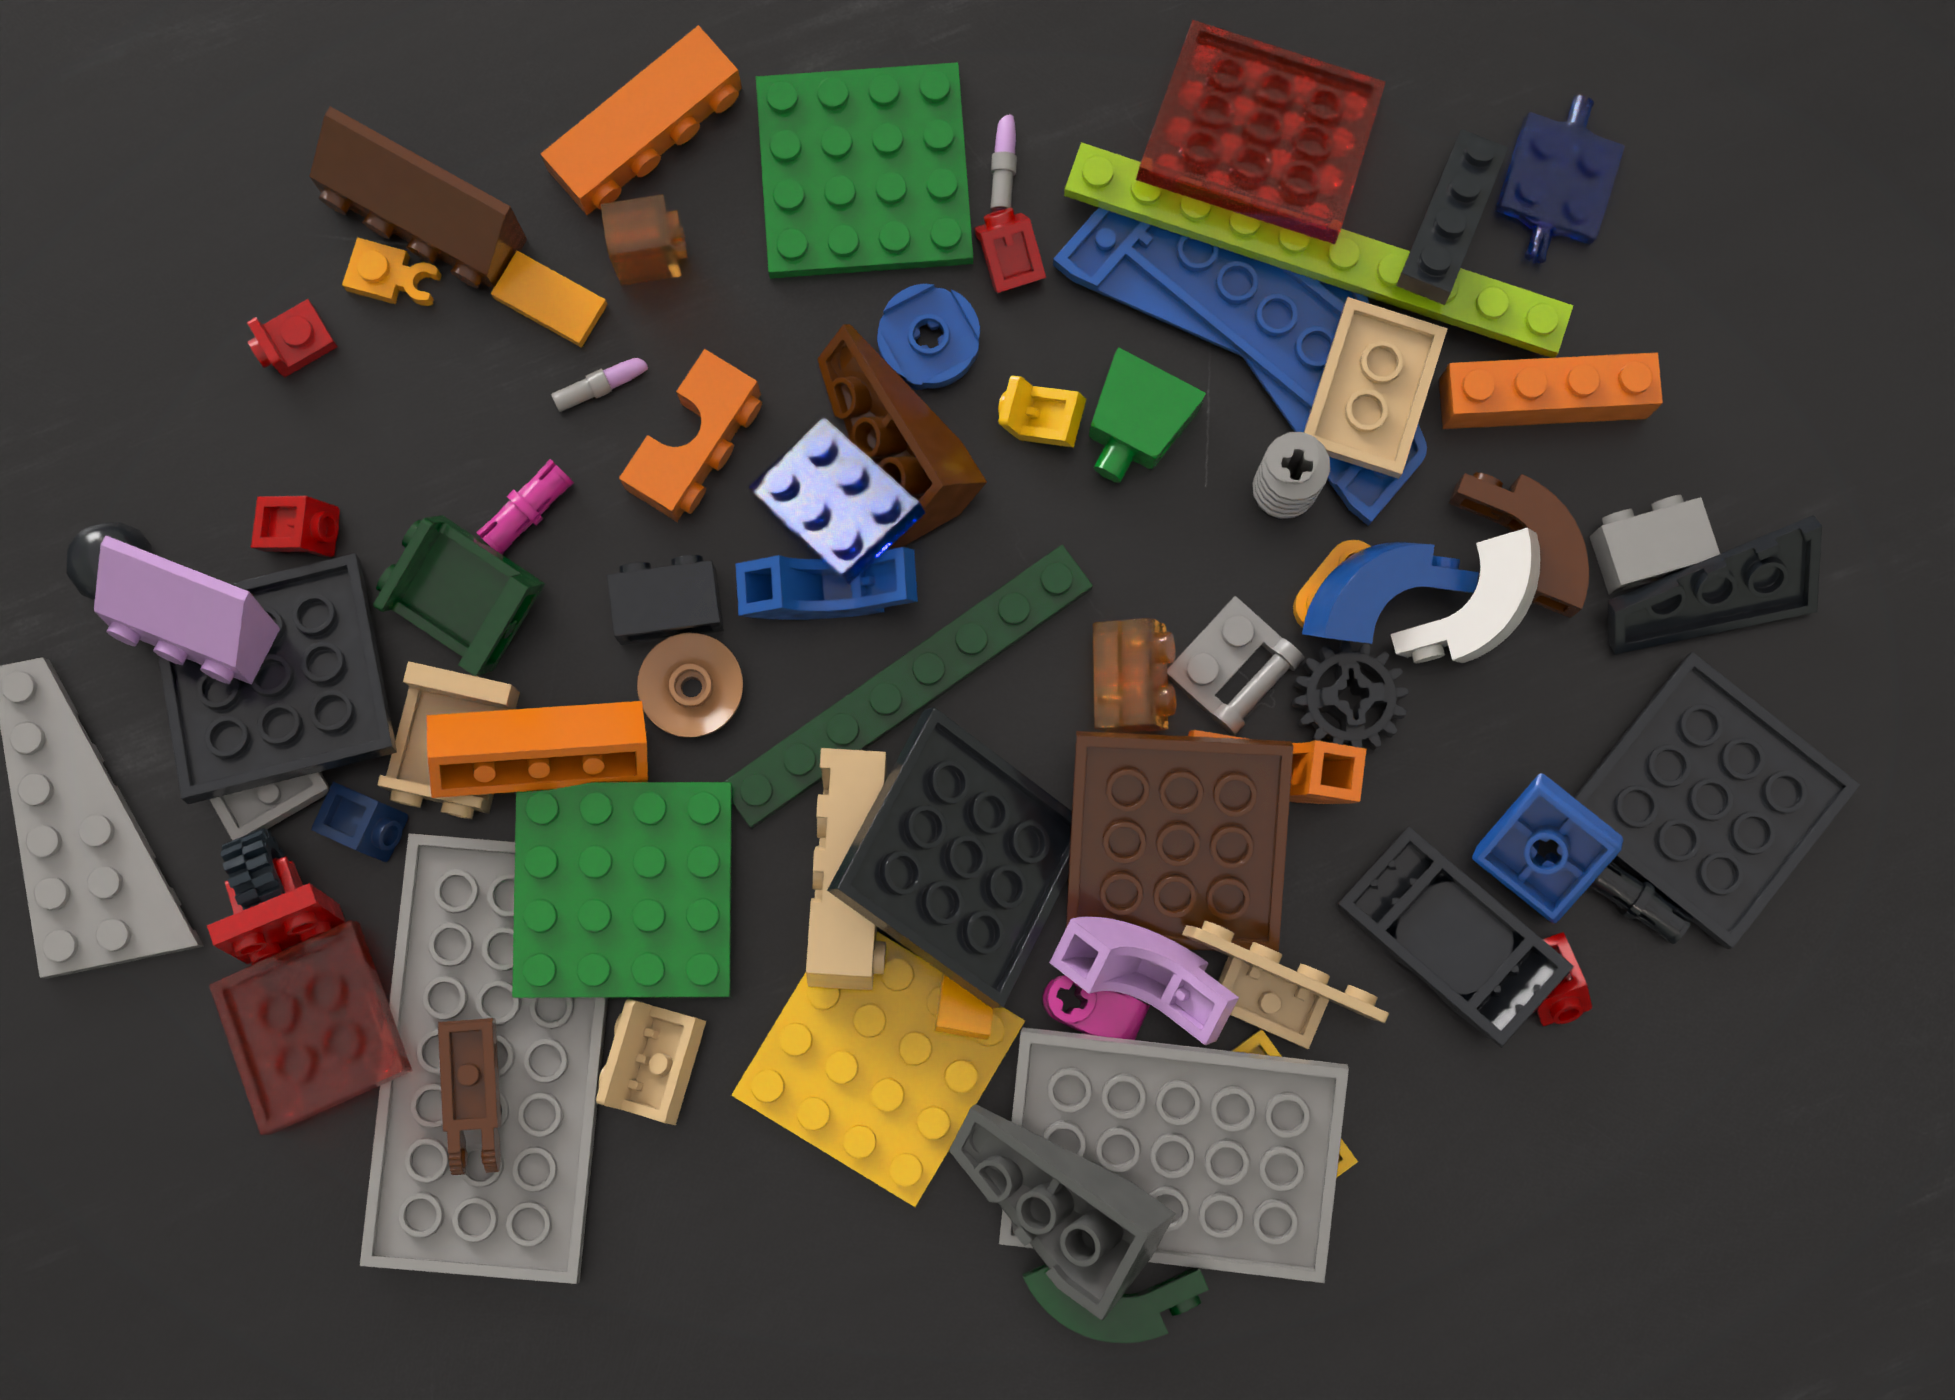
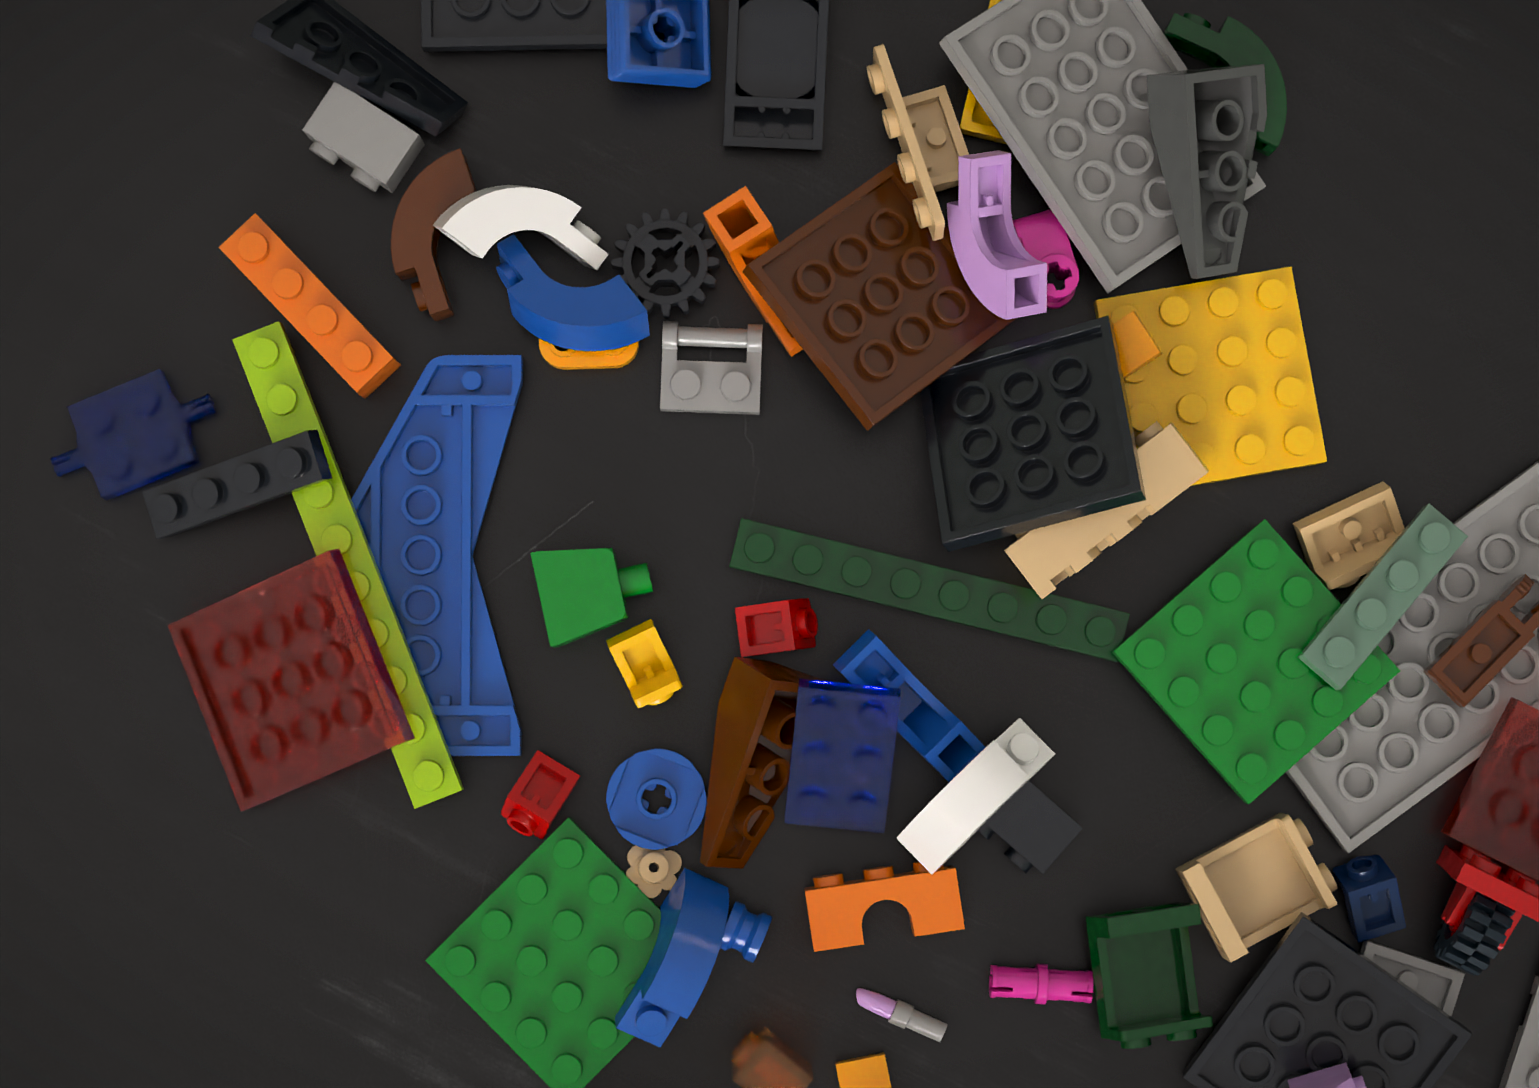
camera: 130 degrees left, 5 degrees up
(536, 748) = (1212, 811): orange brick -> none
(583, 1033) = (1382, 597): none -> sand green plate
(671, 666) = (1092, 738): medium nougat dish -> none
(714, 574) = (974, 795): none -> white arch
(767, 315) = (745, 931): none -> blue wheel
(791, 246) = (681, 960): none -> blue arch
(866, 278) = (650, 882): none -> tan plant
(981, 540) = (776, 627): none -> red bracket
(1003, 164) = (474, 858): light grey piece -> none
(1132, 675) = (785, 430): clear orange brick -> none
(1297, 456) = (521, 437): light grey piece -> none
(1374, 386) = (421, 434): tan plate -> none

